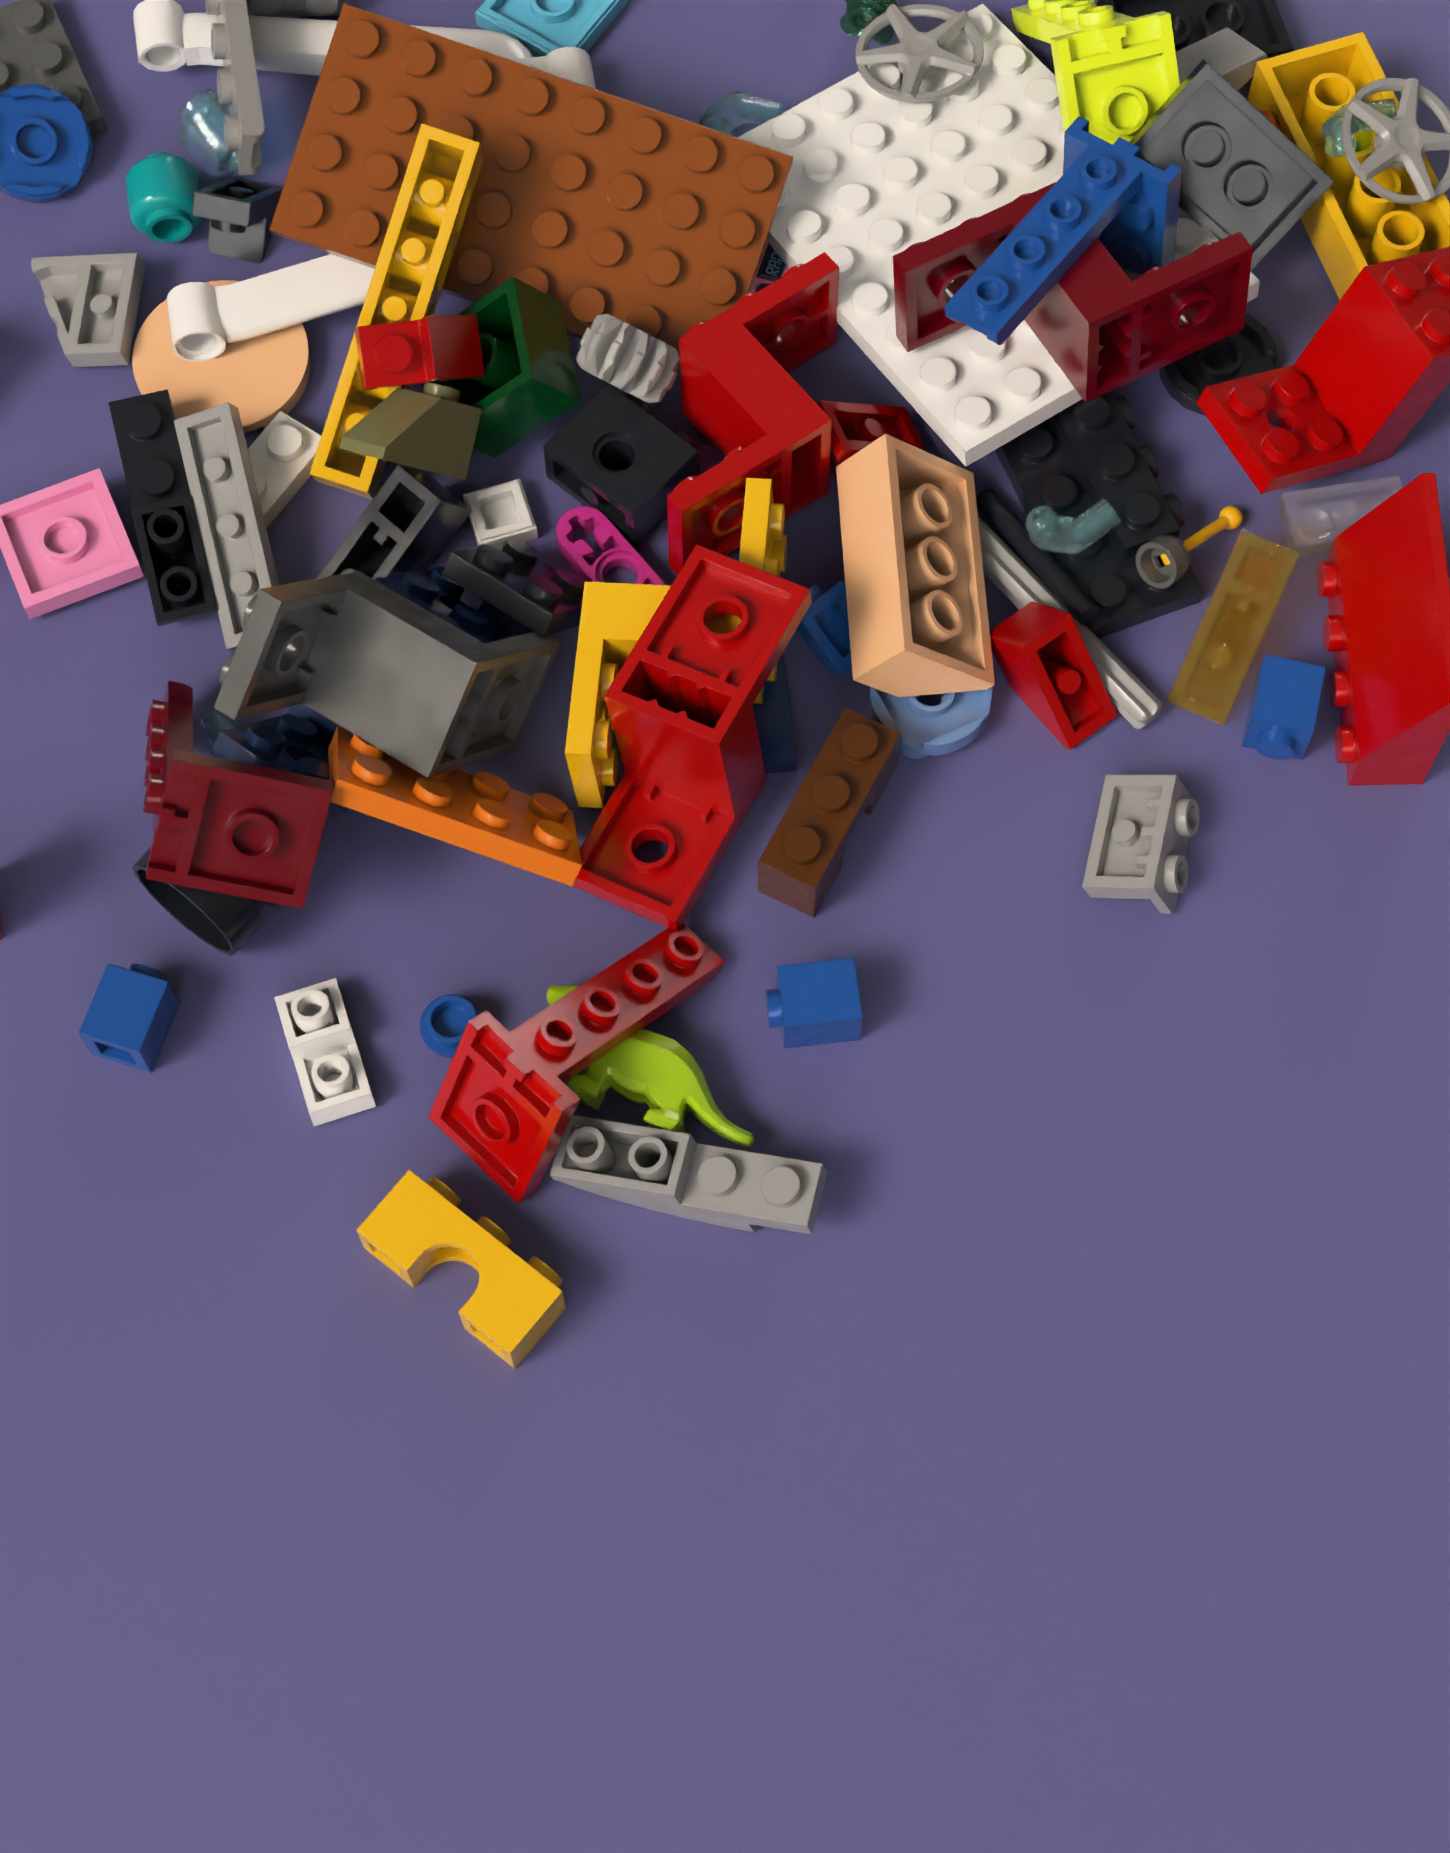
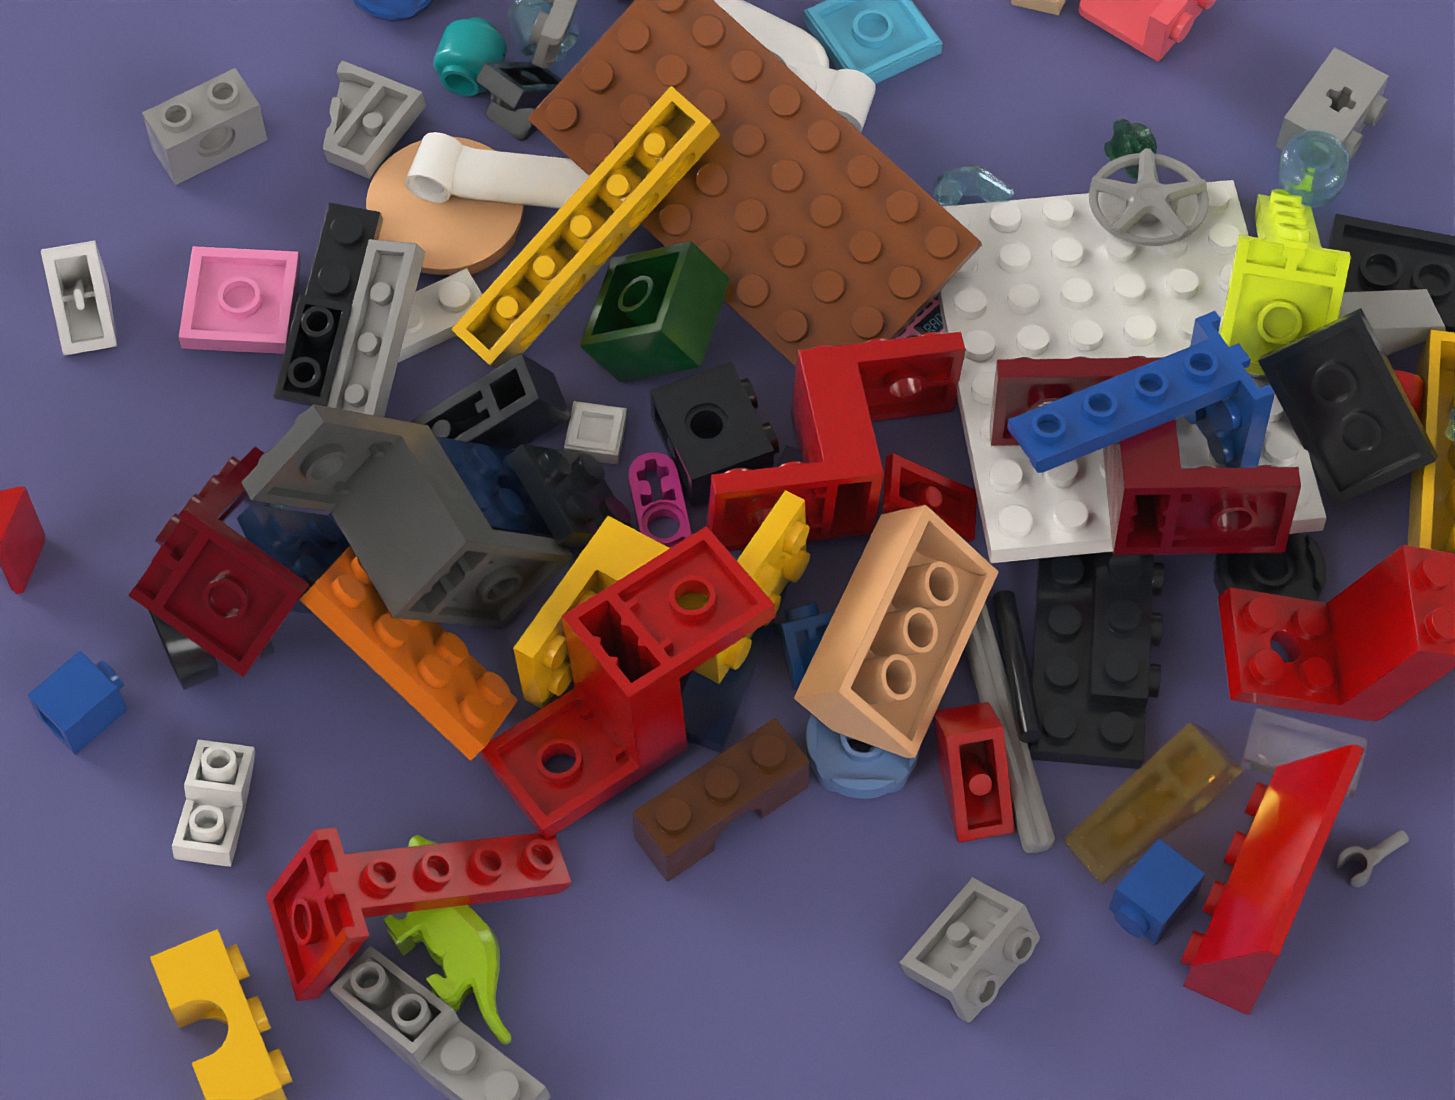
camera: 25 degrees right, 5 degrees down
(419, 351) = (583, 270): red slope -> none
(419, 431) = (551, 334): olive slope -> none
(445, 1023) = (322, 816): blue plate -> none
(628, 358) = (756, 349): light grey gear -> none
(816, 1003) = (622, 952): blue brick -> none
(1068, 534) = (1048, 658): clear light blue arm -> none
(1175, 551) = (1121, 717): dark grey hinge -> none

